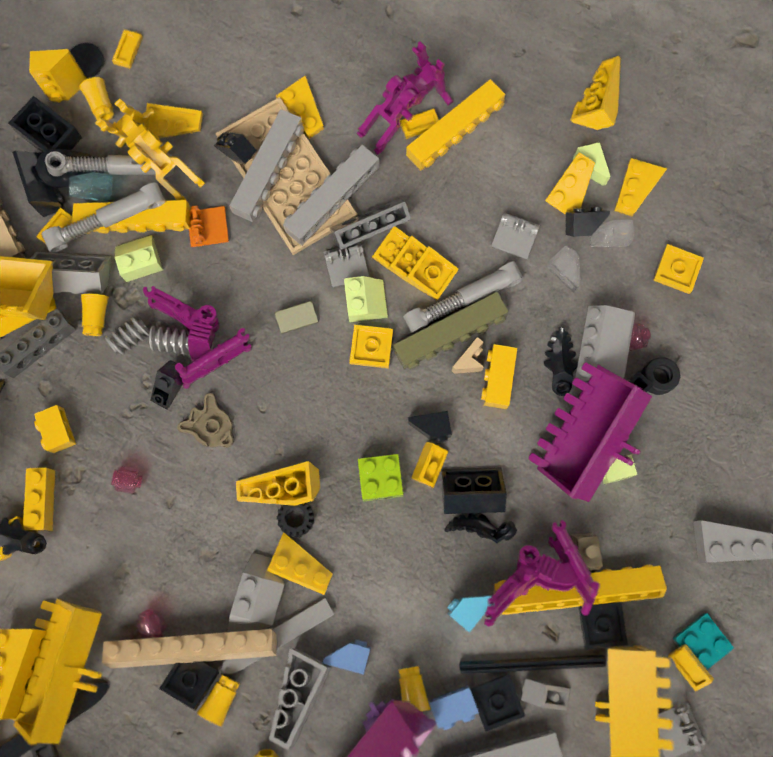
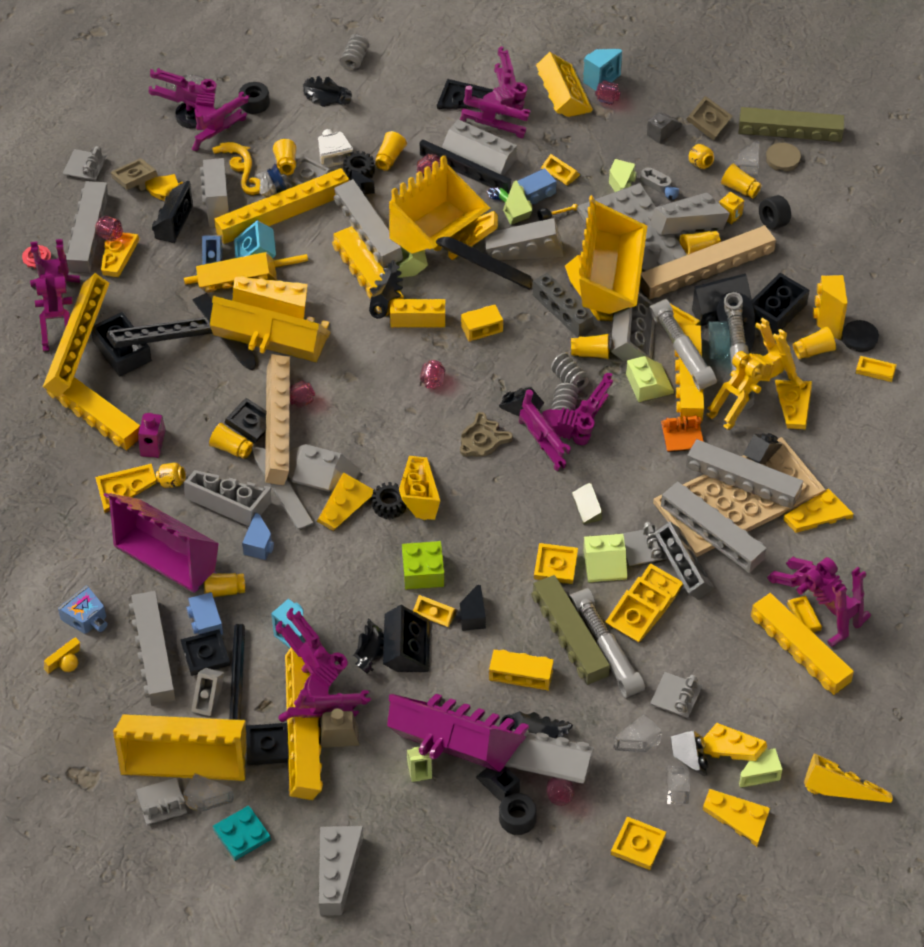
camera: 90 degrees right, 25 degrees down
(466, 362) = (541, 642): tan slope -> none
(691, 667) = (219, 815): yellow tile -> none

